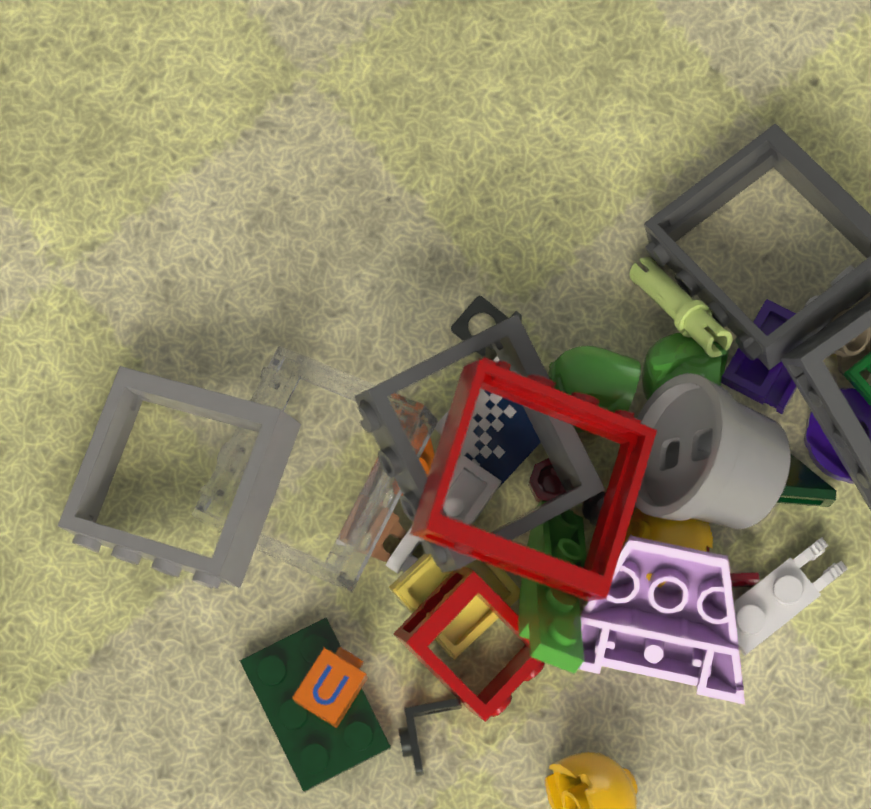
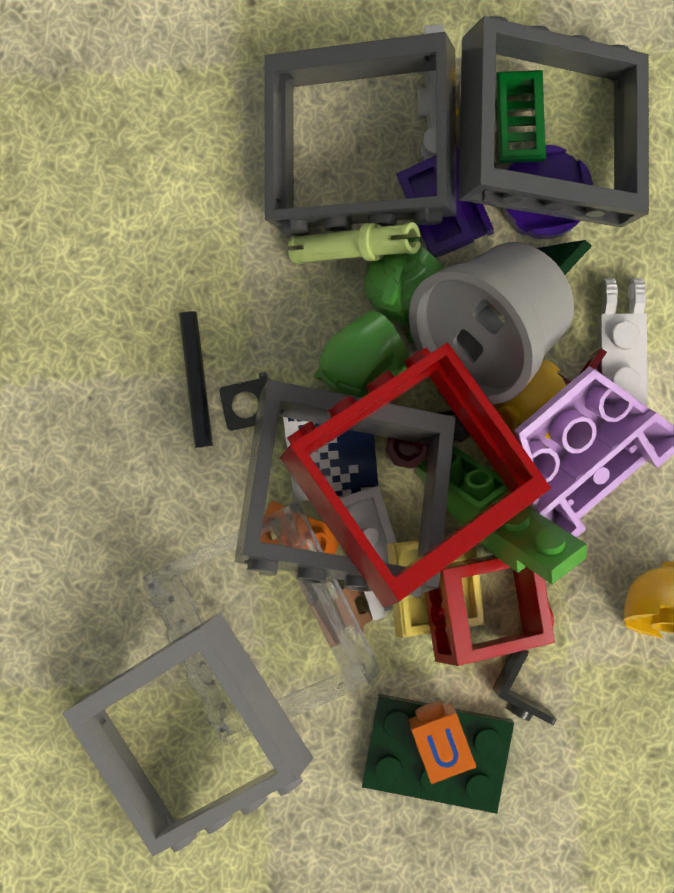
camera: 50 degrees left, 10 degrees up
(471, 271) = (195, 379): none -> black bar

